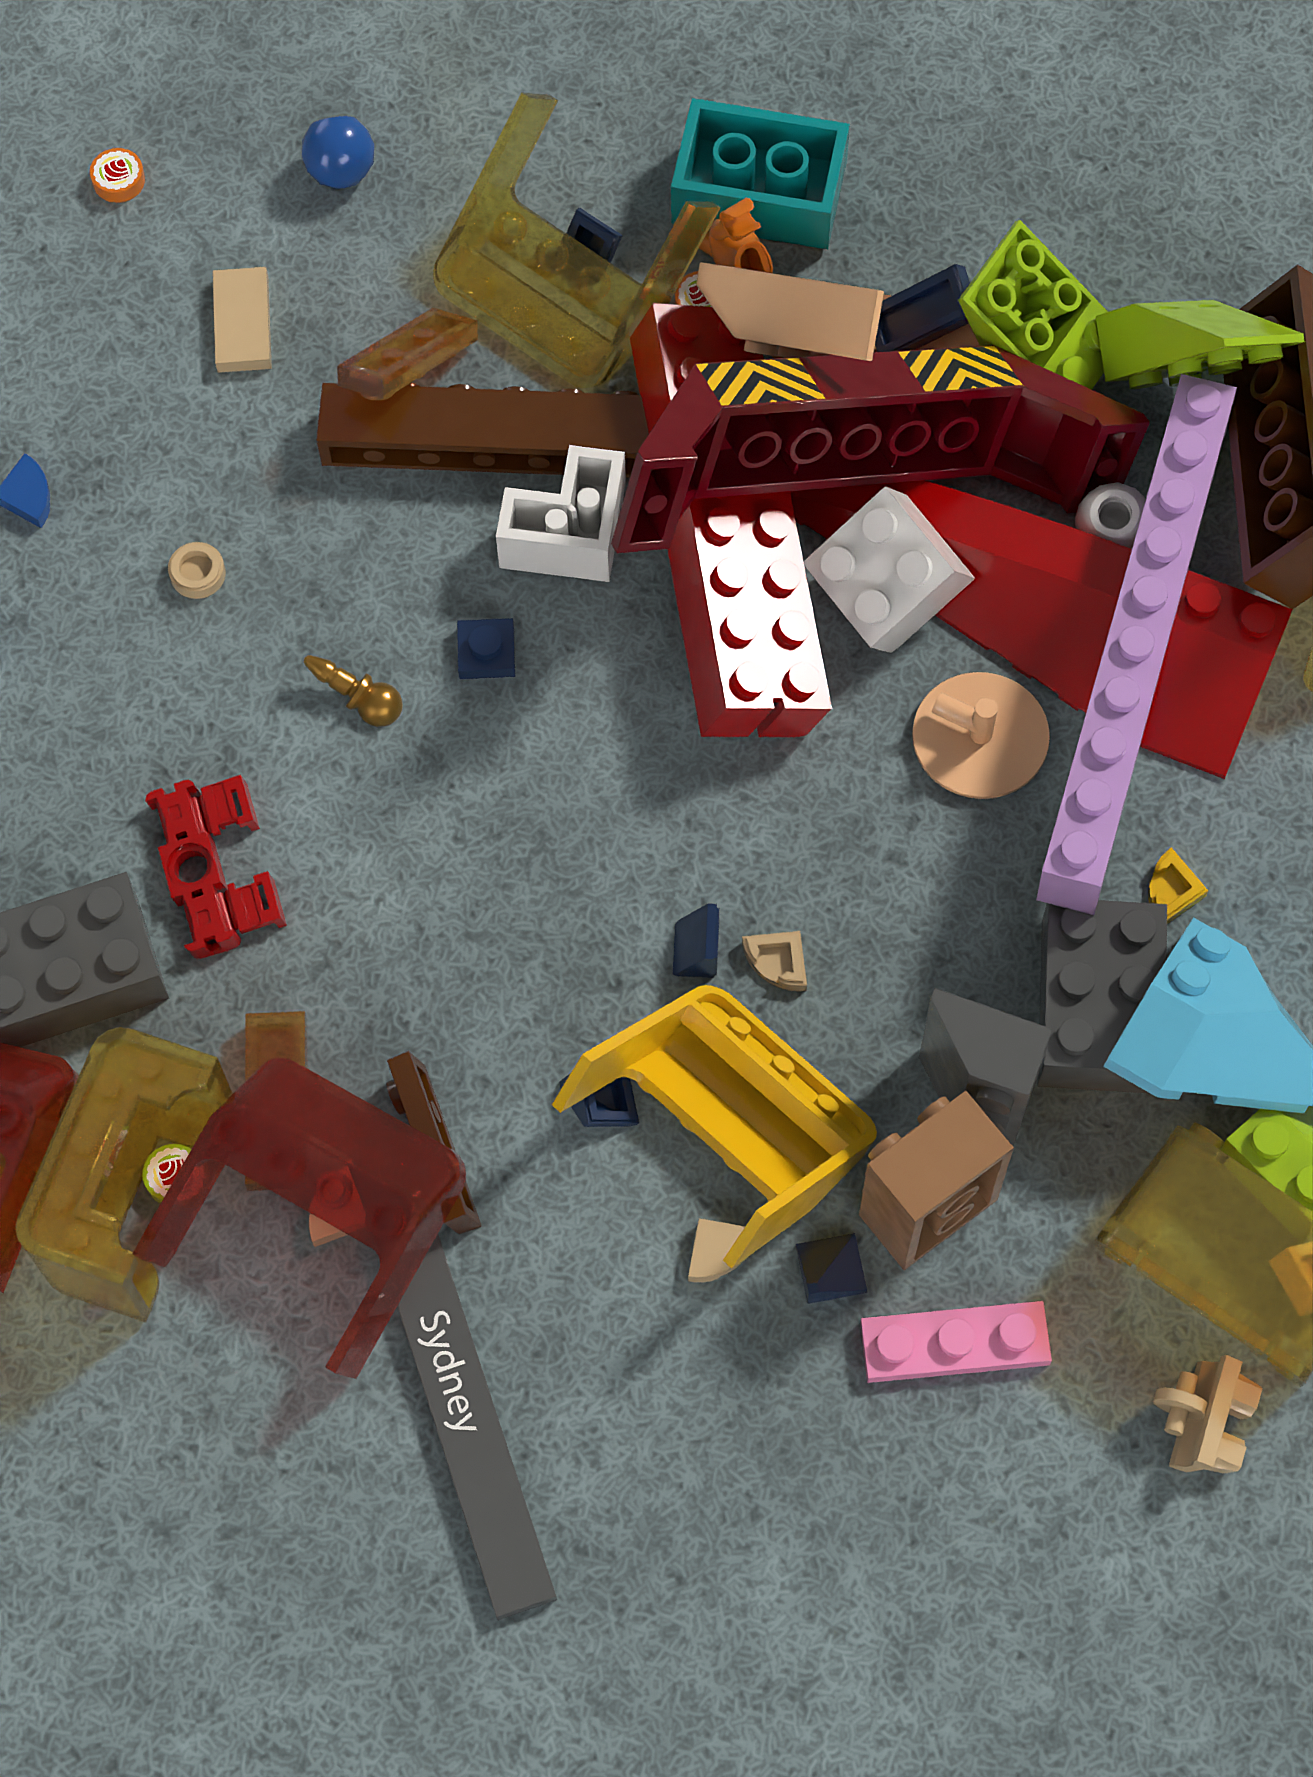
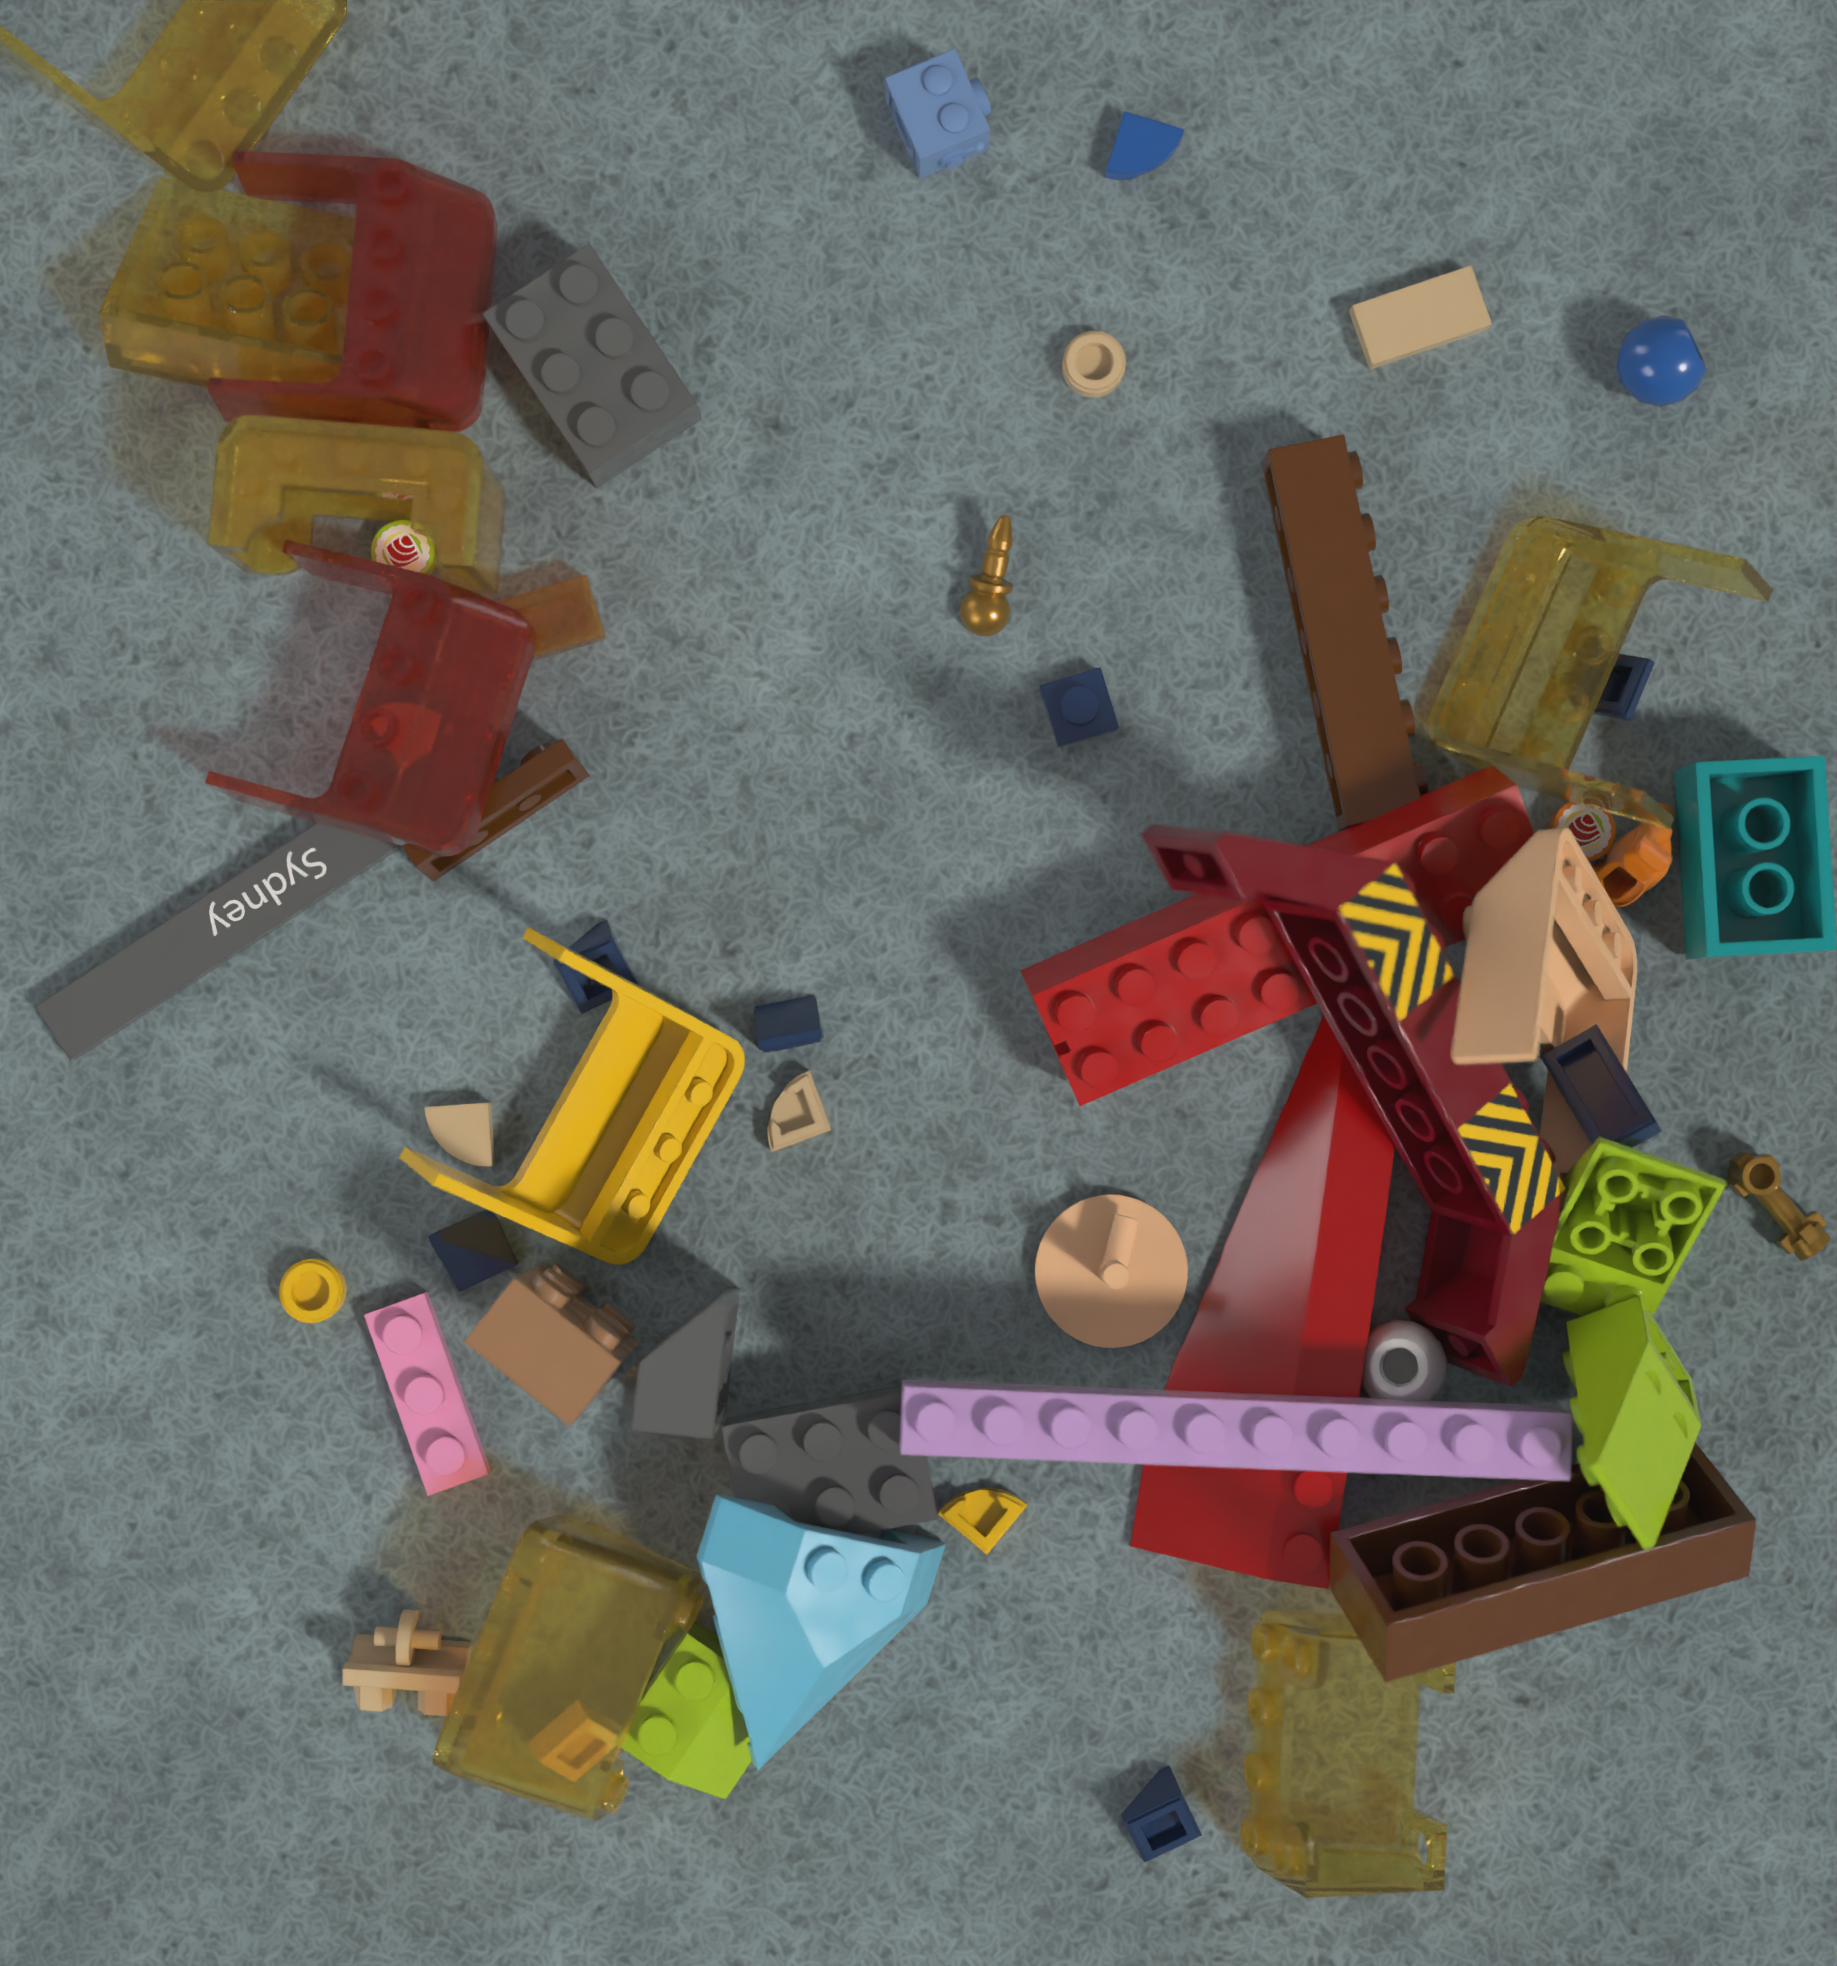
camera: 70 degrees right, 20 degrees up
(117, 175) = (1573, 116): tile -> none
(210, 904) = (696, 500): red piece -> none
(407, 354) = (1405, 519): clear orange plate -> none
(568, 530) = (1235, 770): white brick -> none
(834, 1424) = (312, 1290): none -> yellow tile
(888, 570) = (1266, 1129): white brick -> none
(1072, 214) = (1762, 1177): none -> pearl gold bar

